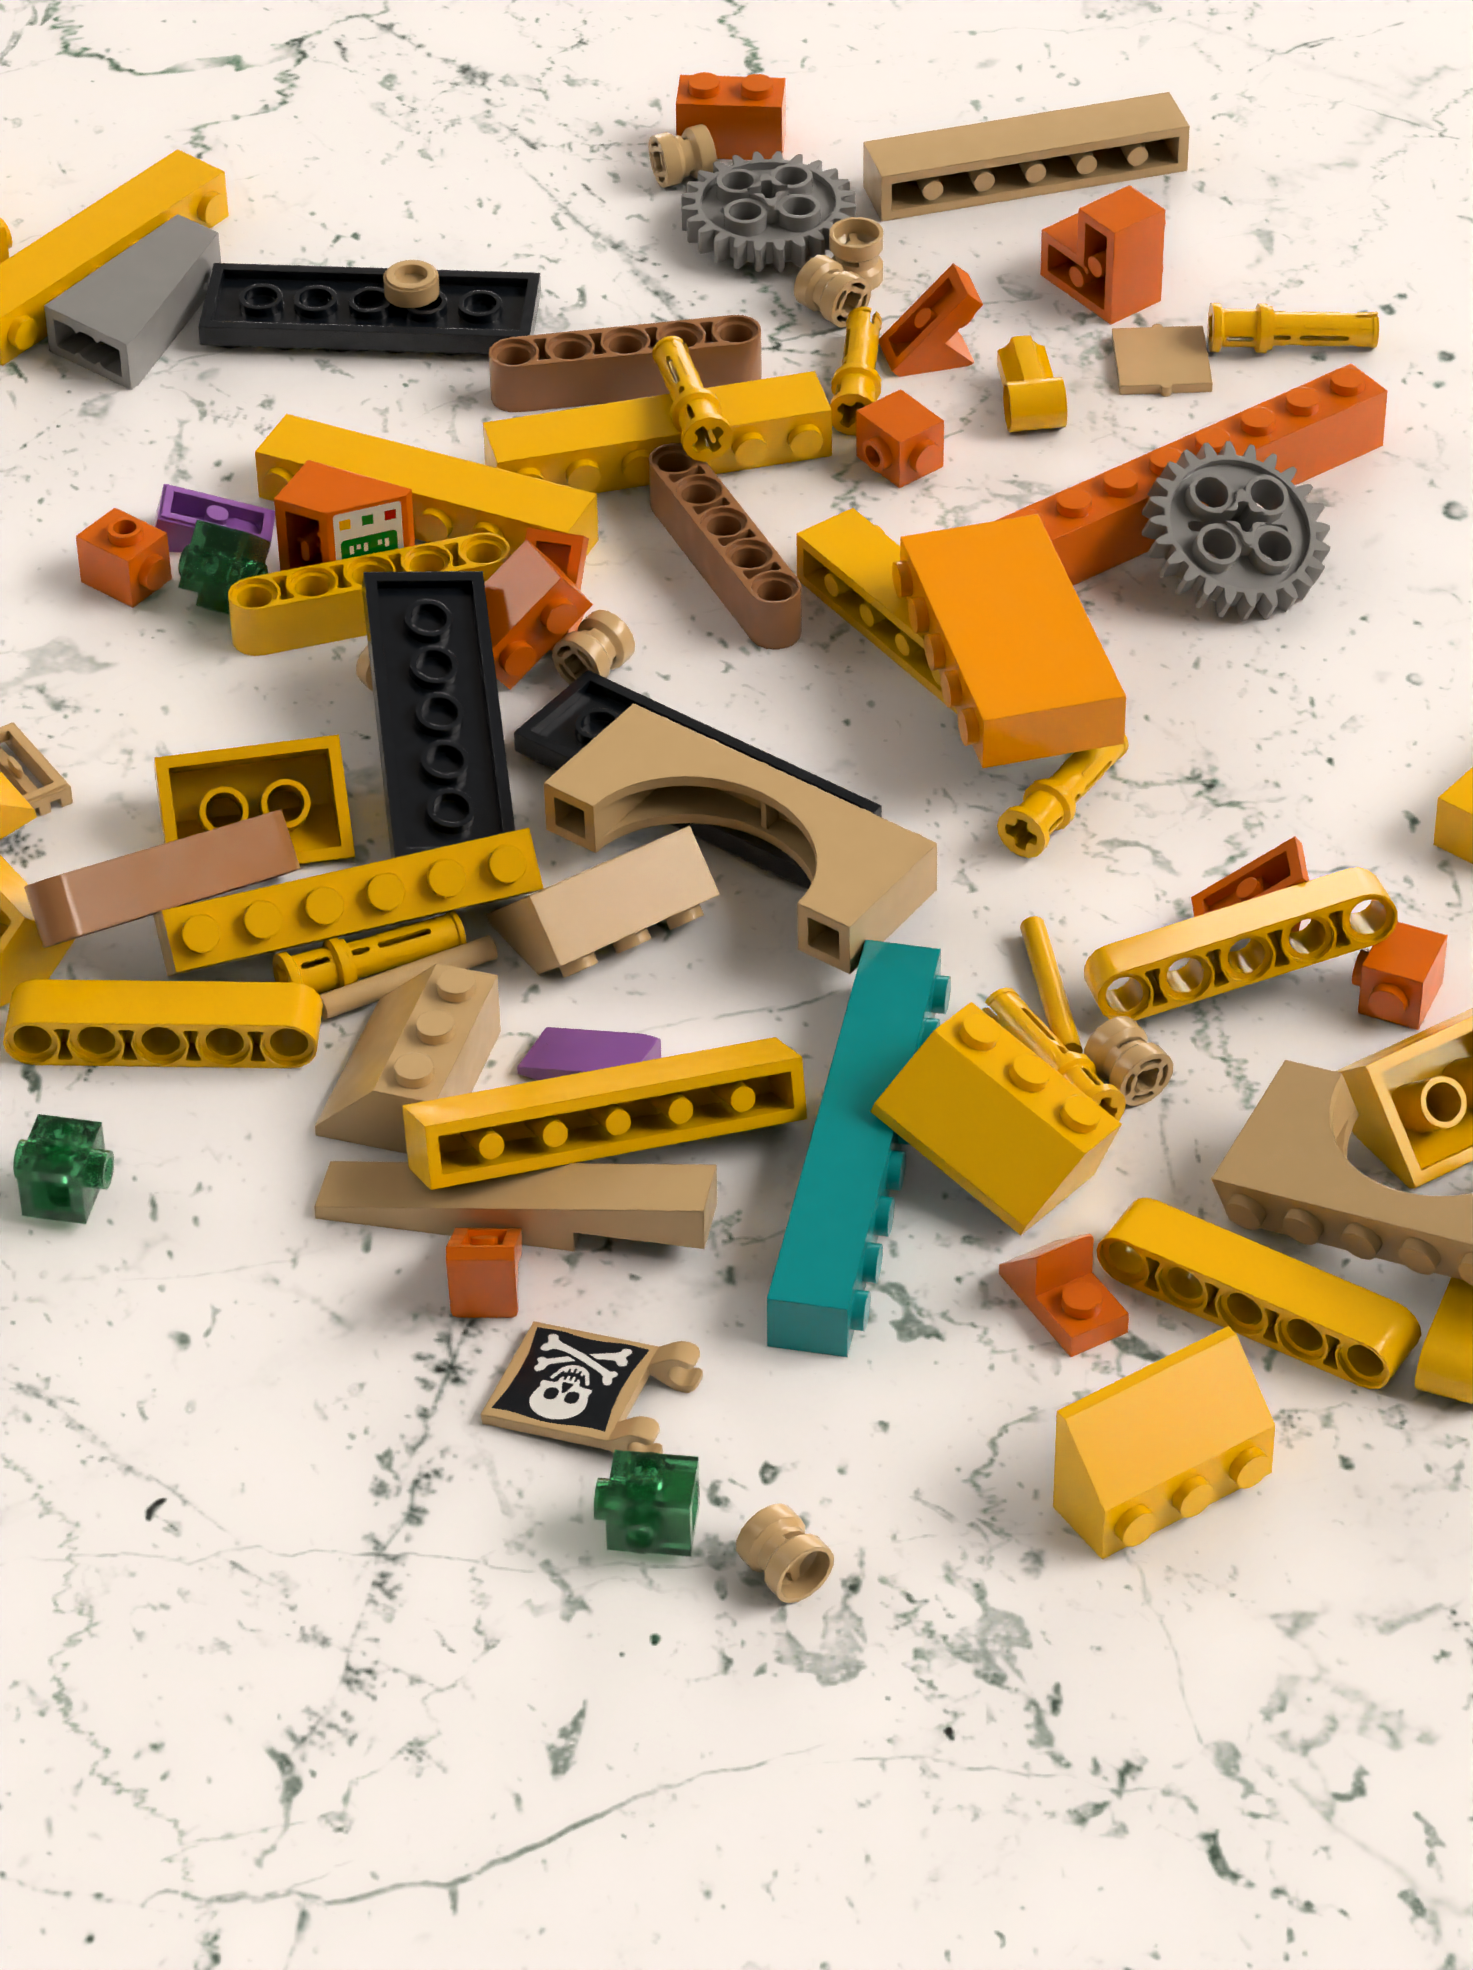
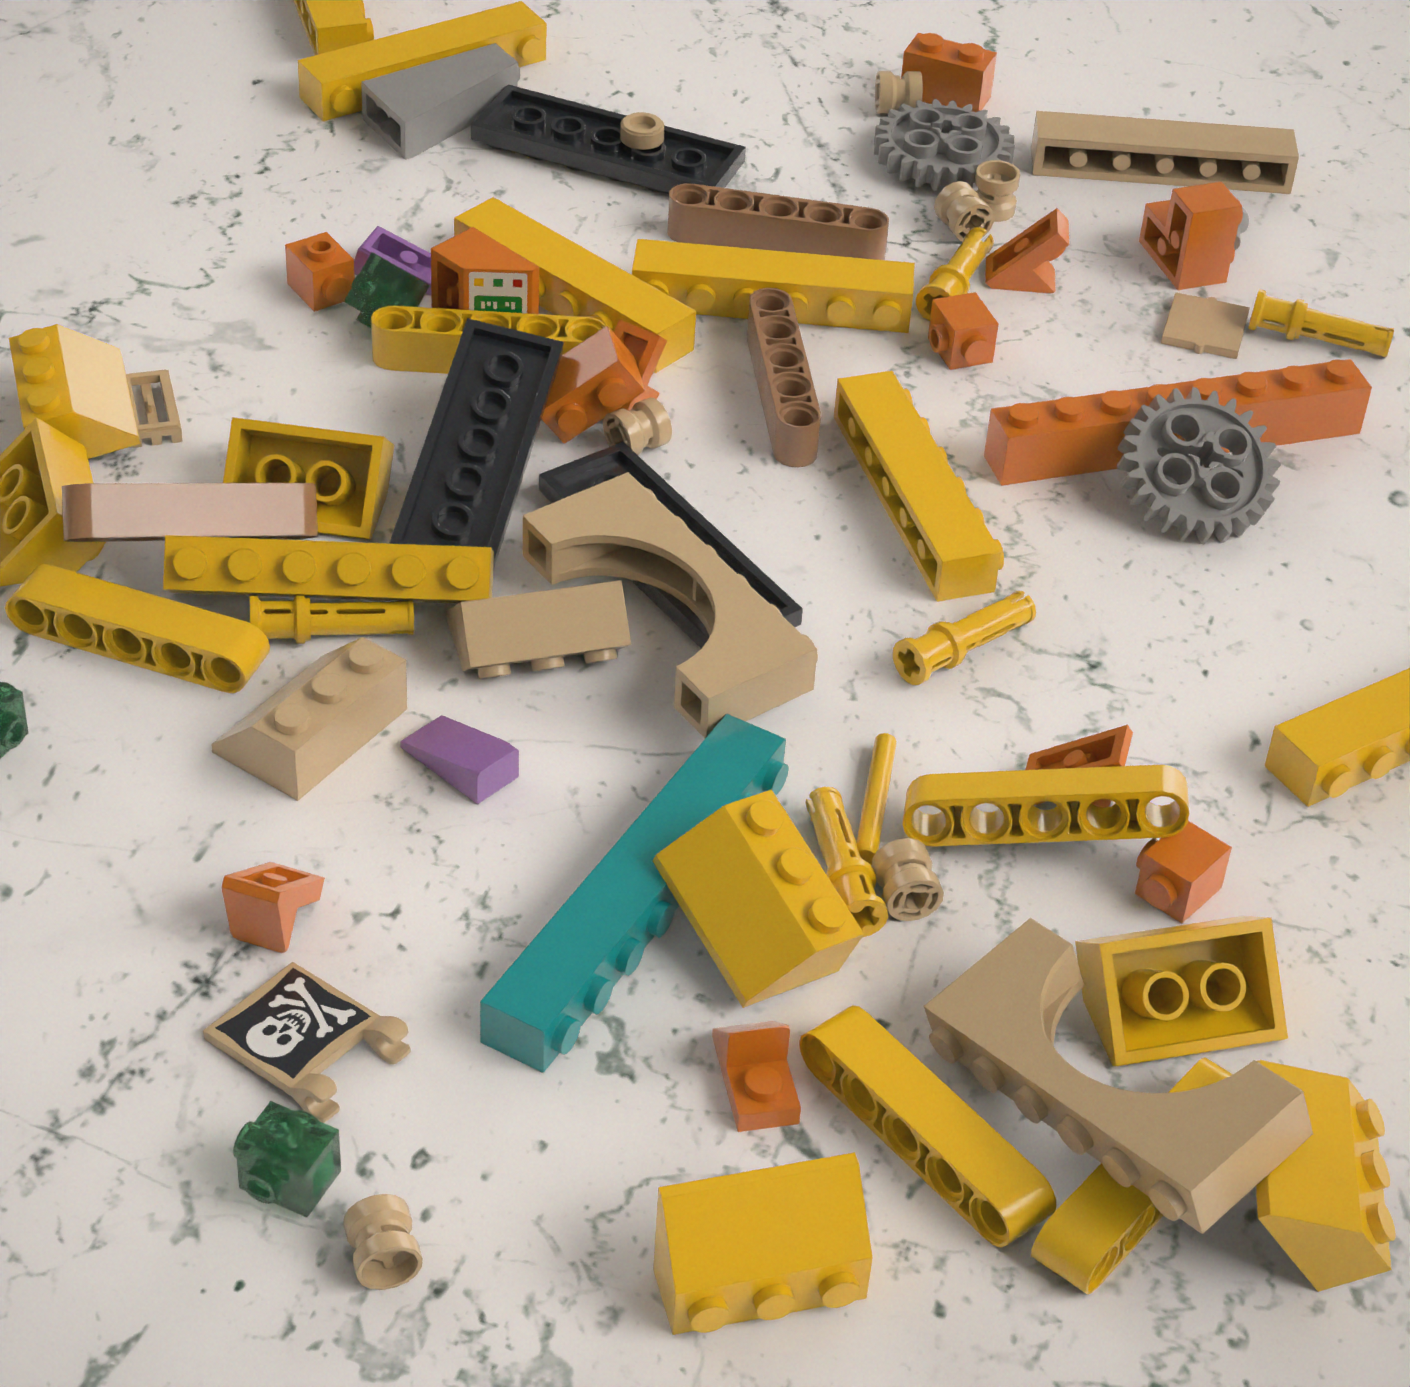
camera: 15 degrees right, 0 degrees up
(375, 987) = (319, 645): tan bar -> none
(550, 1204) = (351, 858): tan slope -> none
(604, 1112) = (433, 798): yellow brick -> none
(694, 408) = (800, 264): yellow pin -> none
(1010, 641) = (960, 504): light orange brick -> none
(1030, 391) = (1087, 318): yellow piece -> none

